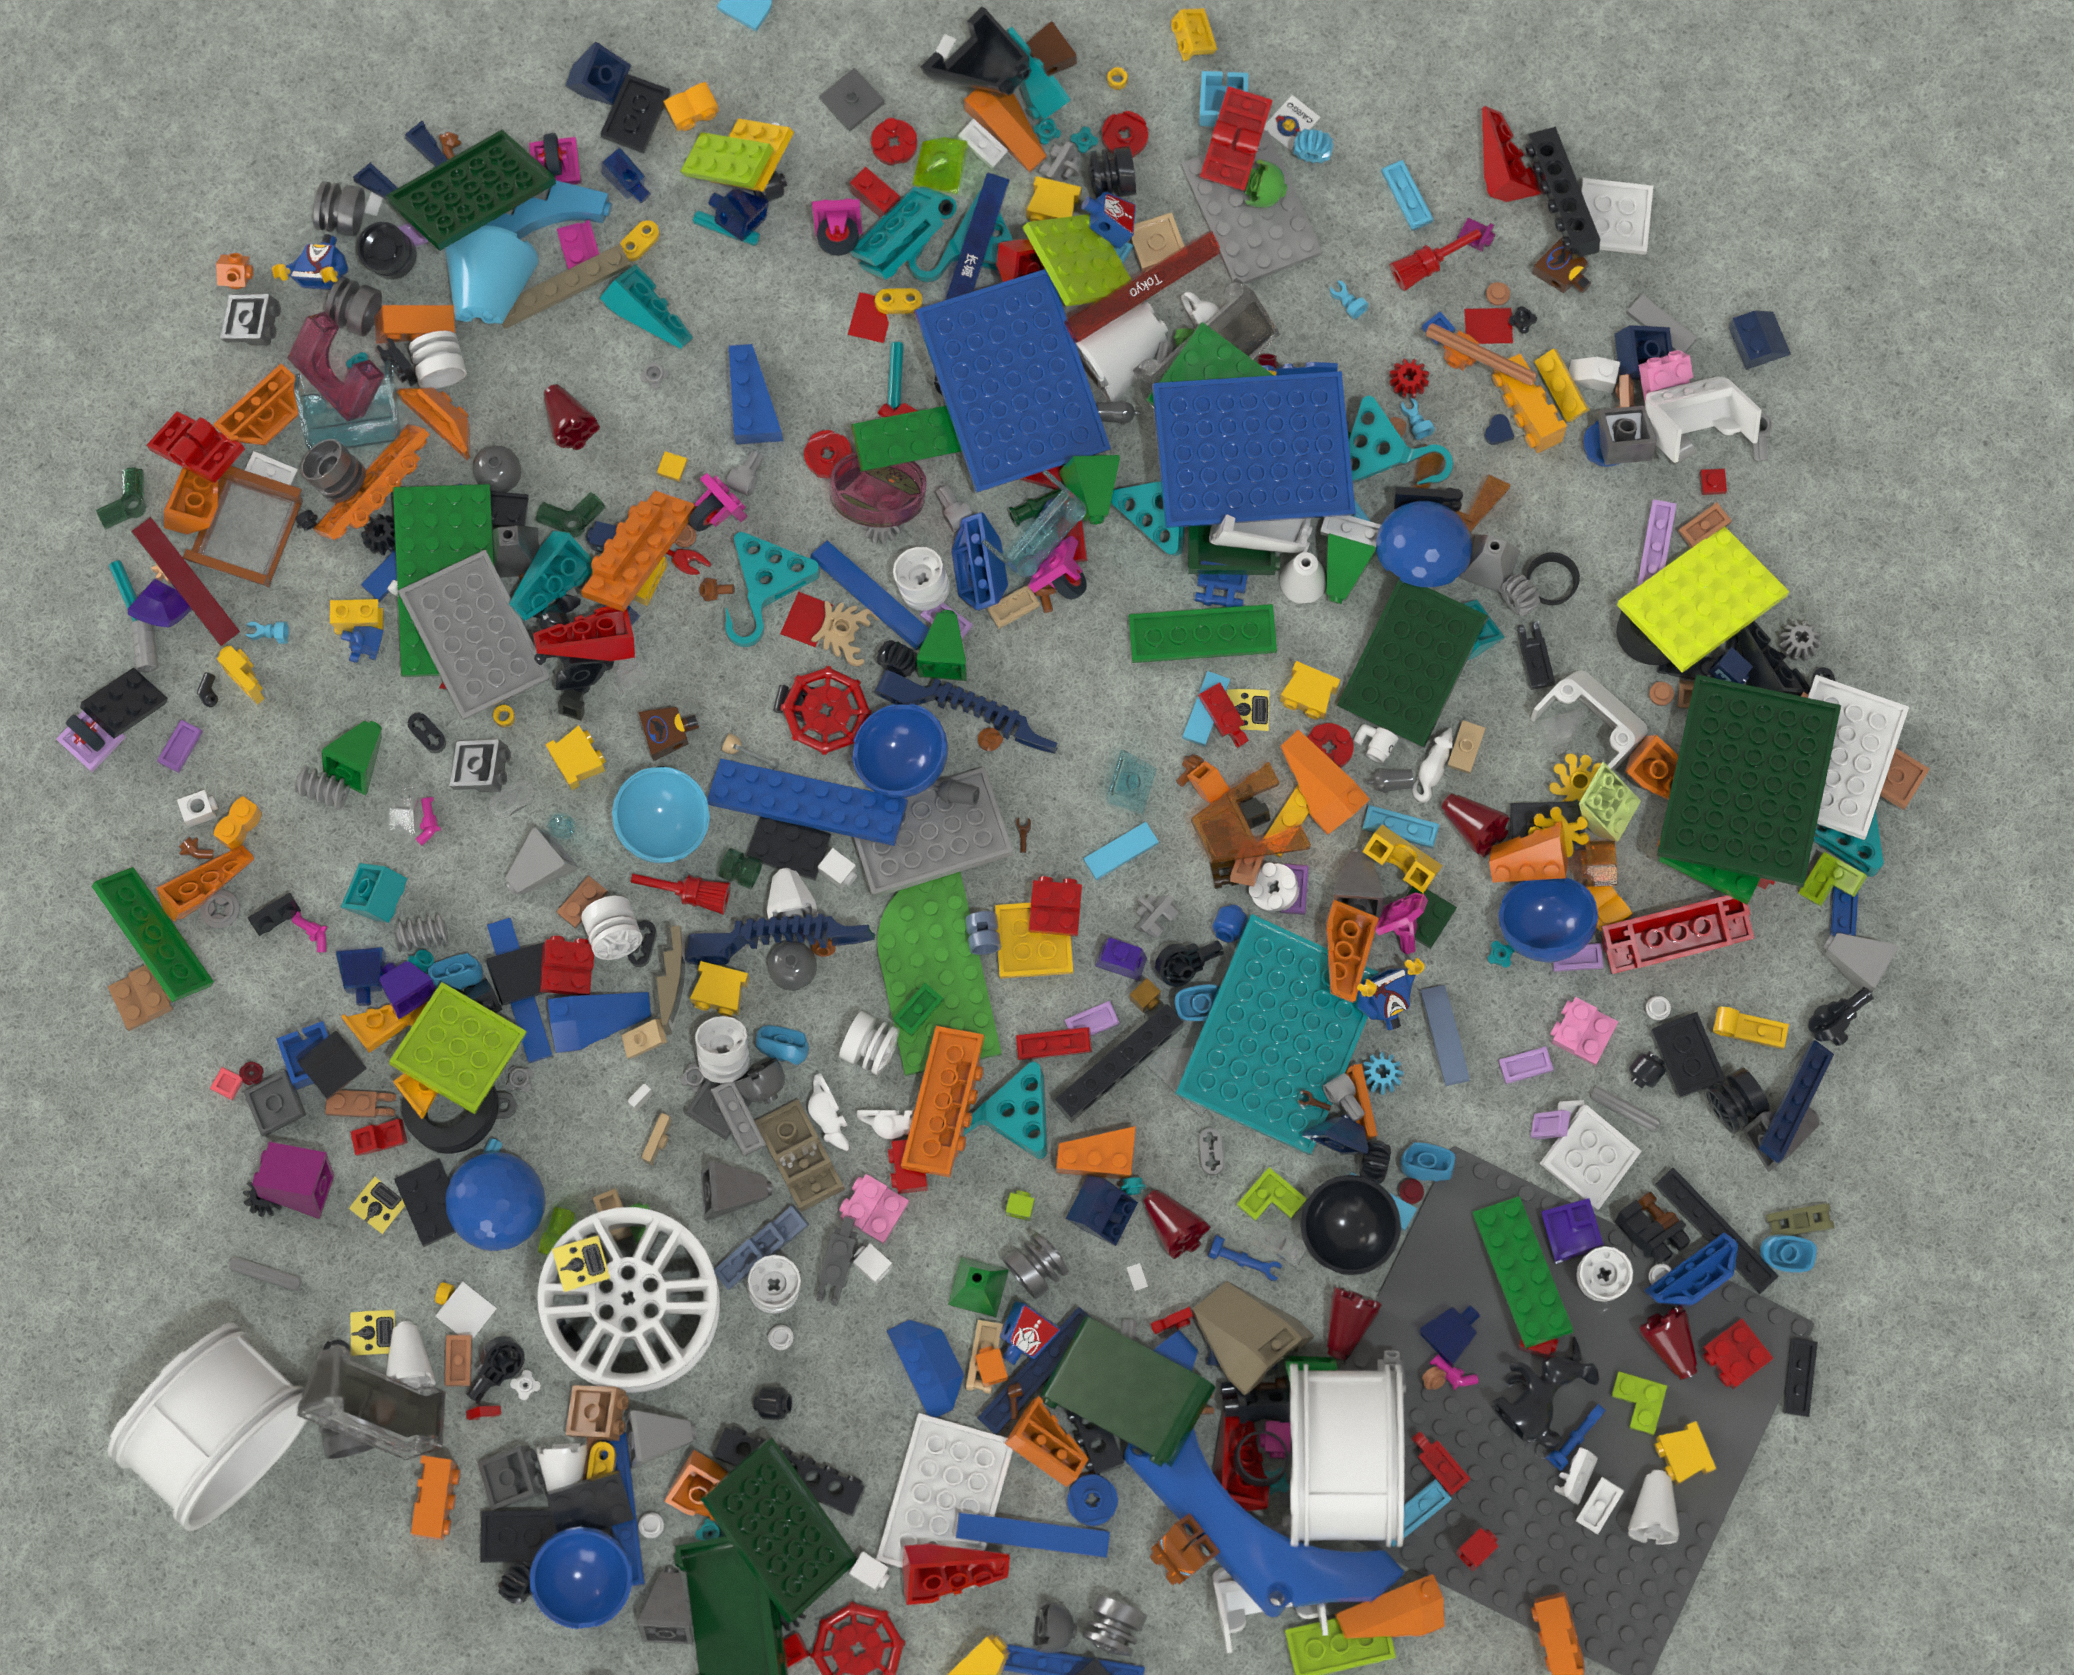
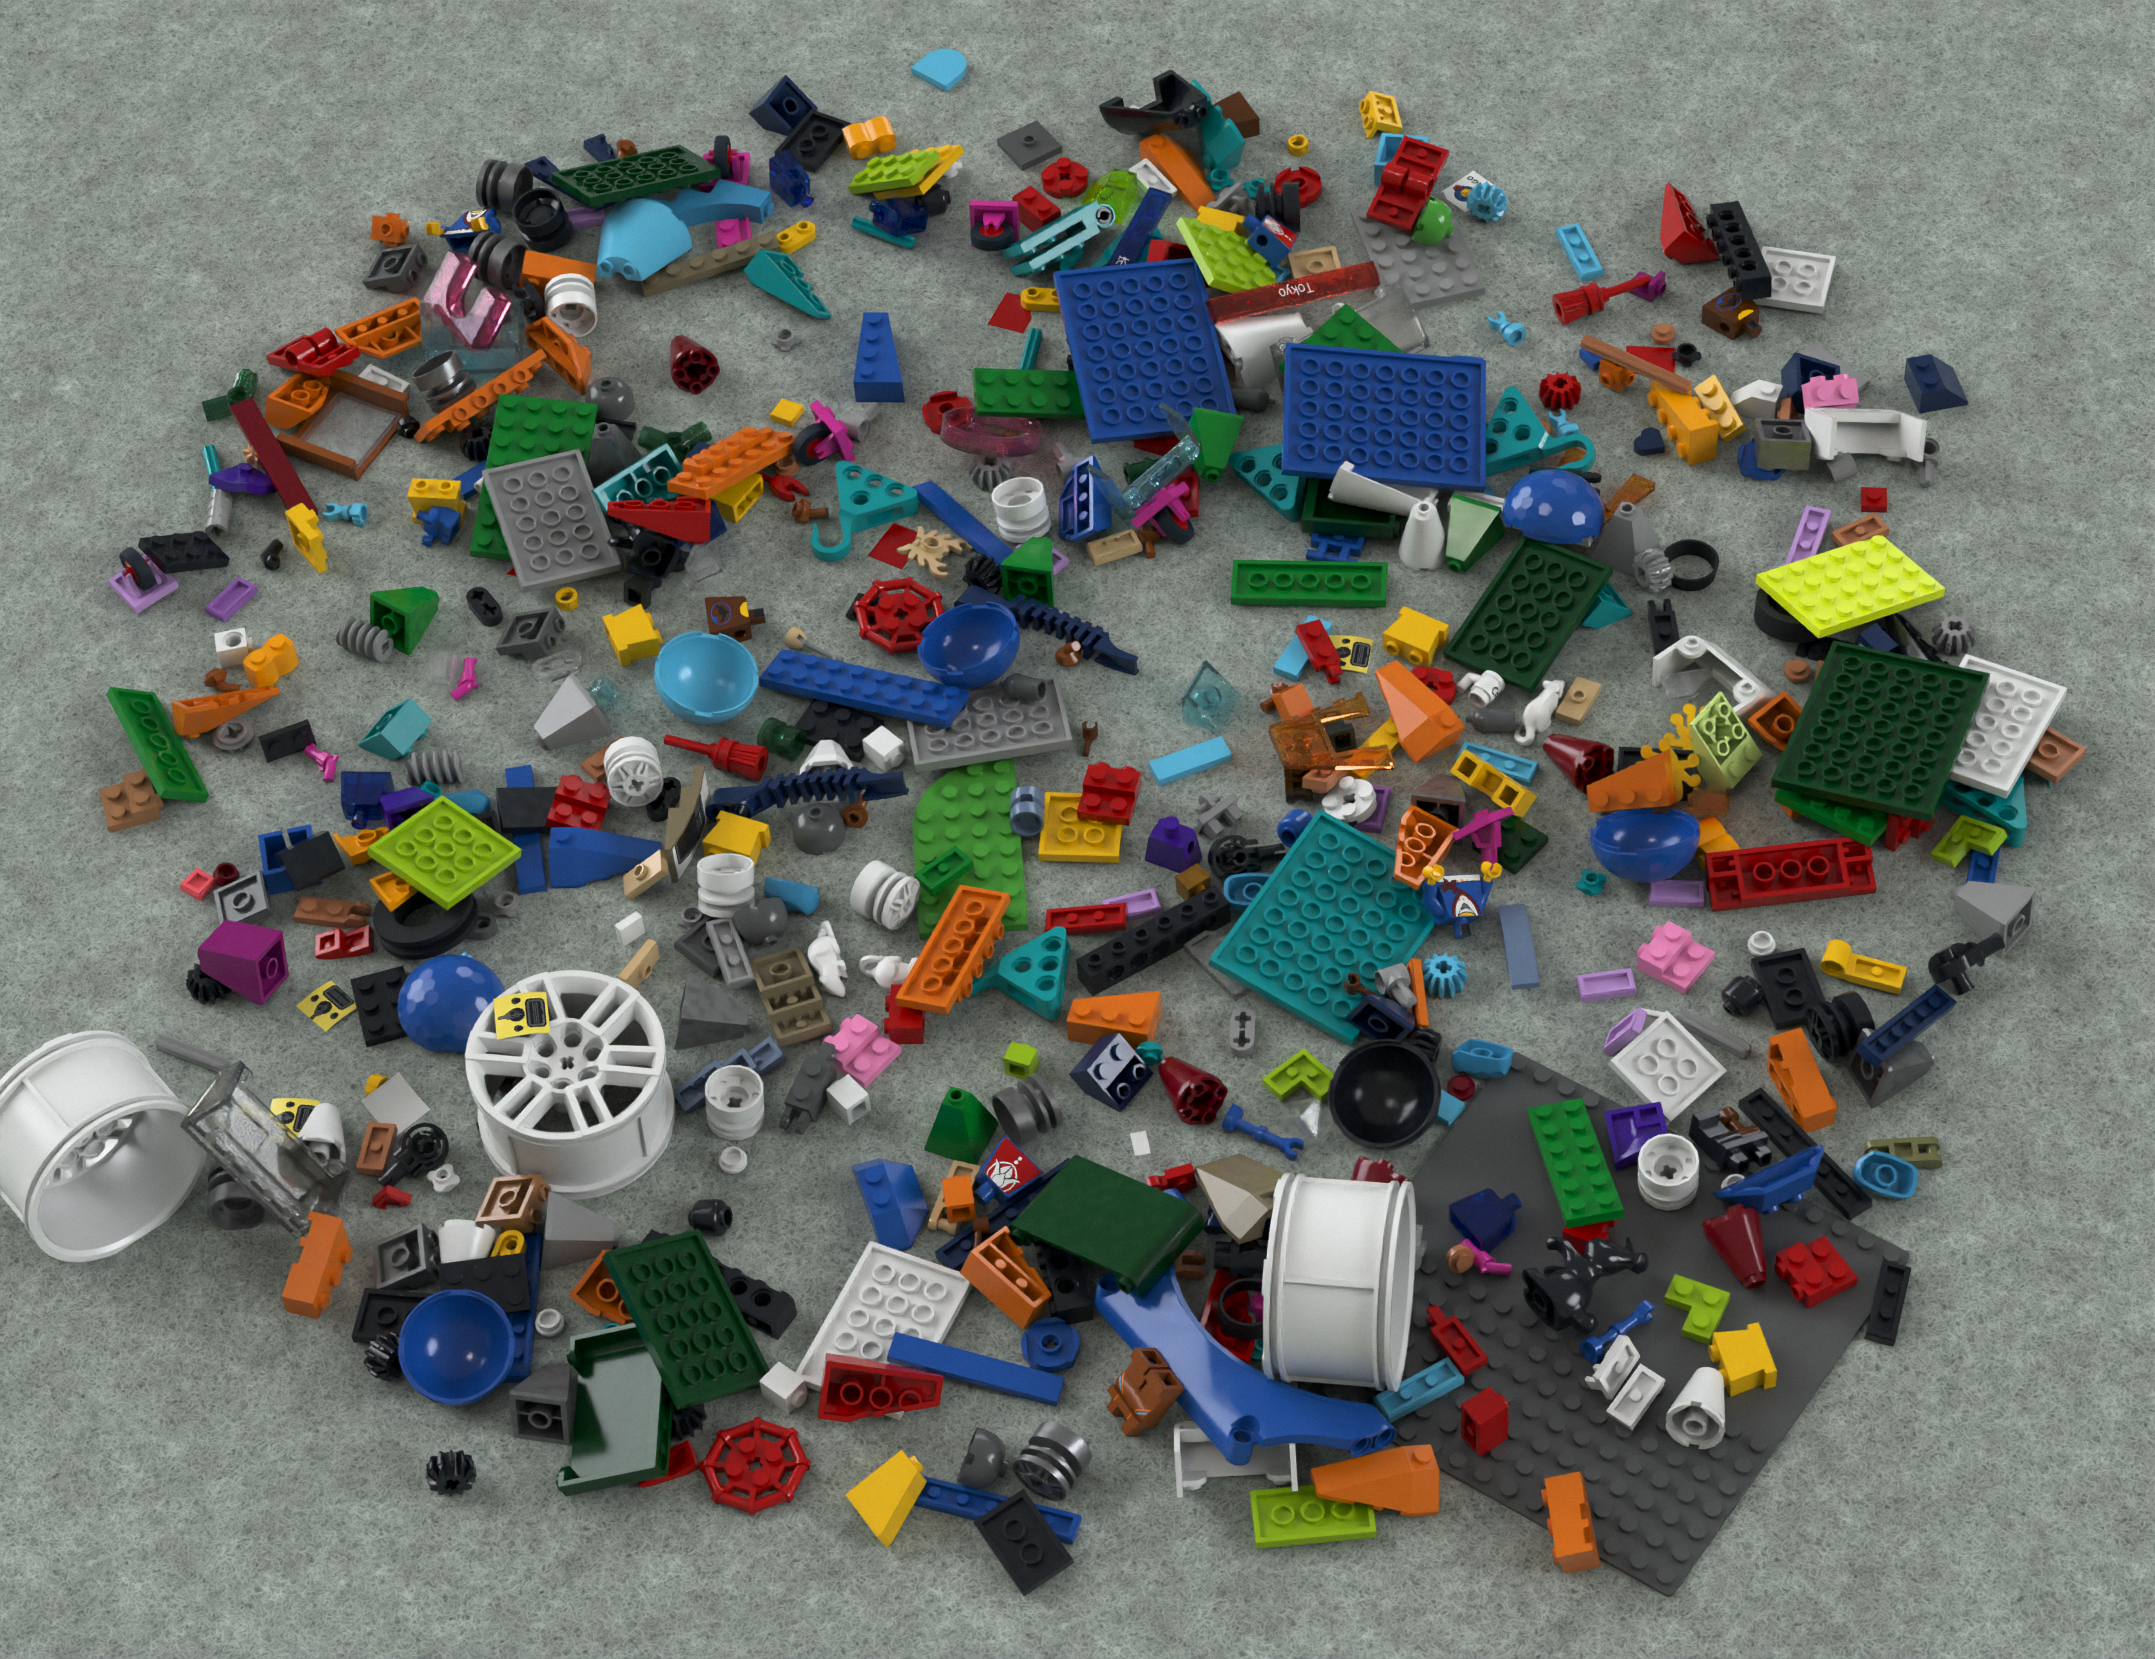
camera: 10 degrees right, 25 degrees down
(1708, 1162) = (1800, 1081): none -> orange wedge

